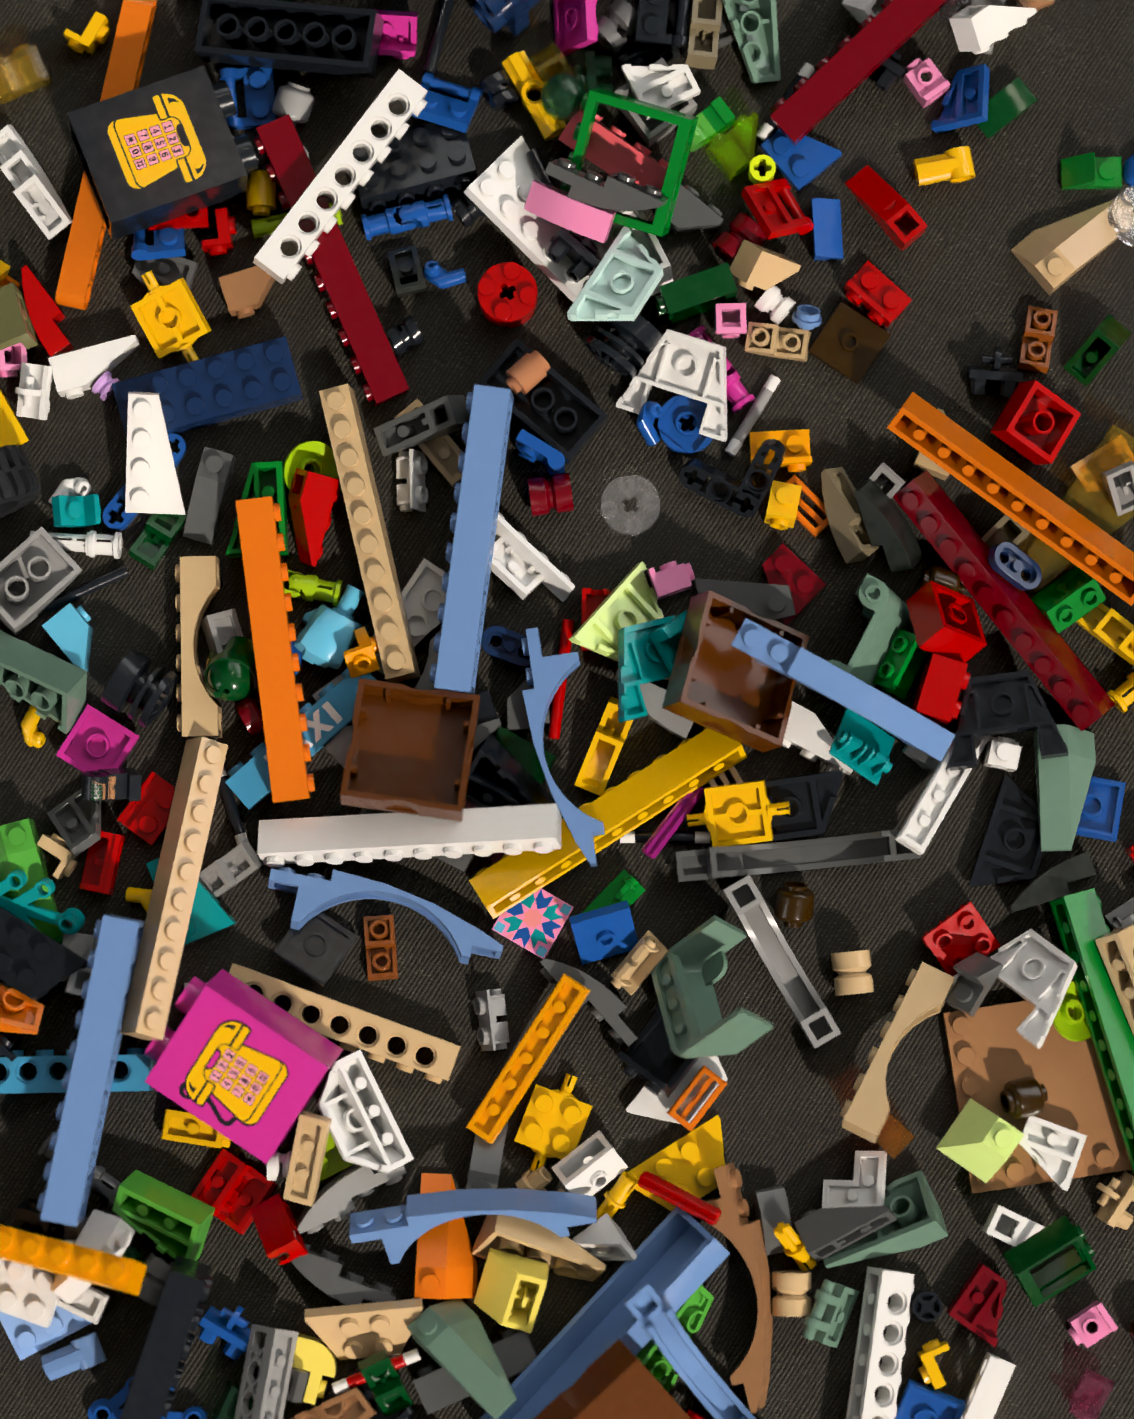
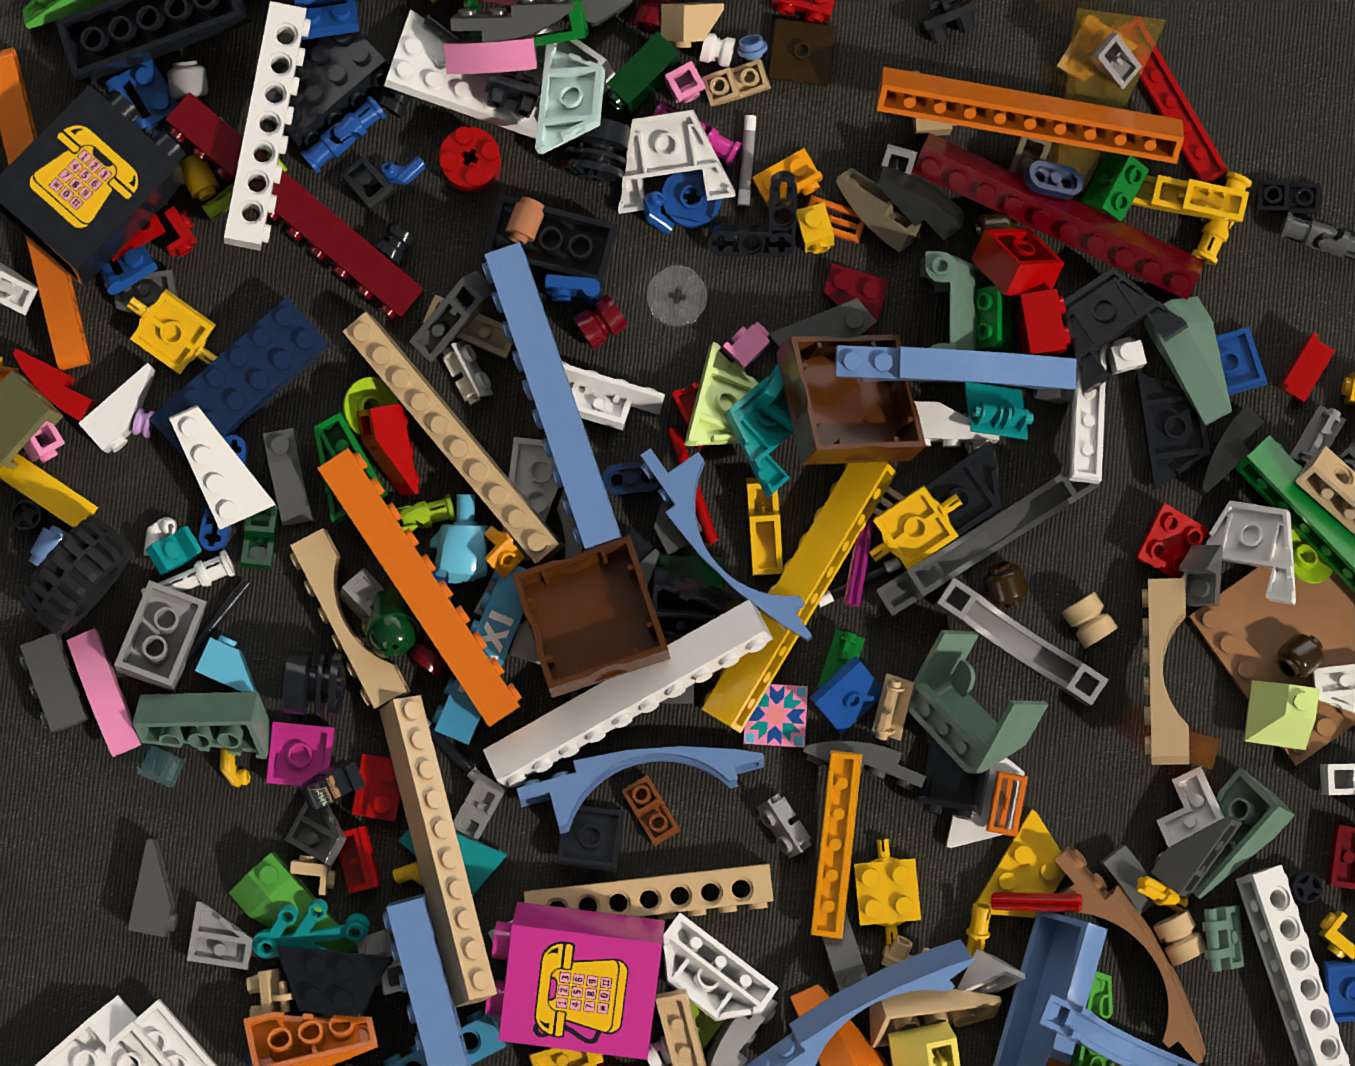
camera: 30 degrees left, 0 degrees up
(34, 391) = (80, 460): white hips -> none
(245, 290) = (229, 273): medium nougat slope -> none
(590, 1166) = (940, 914): white brick -> none
(654, 699) = (790, 462): light grey slope -> none
(1035, 422) = (1006, 41): red brick -> none

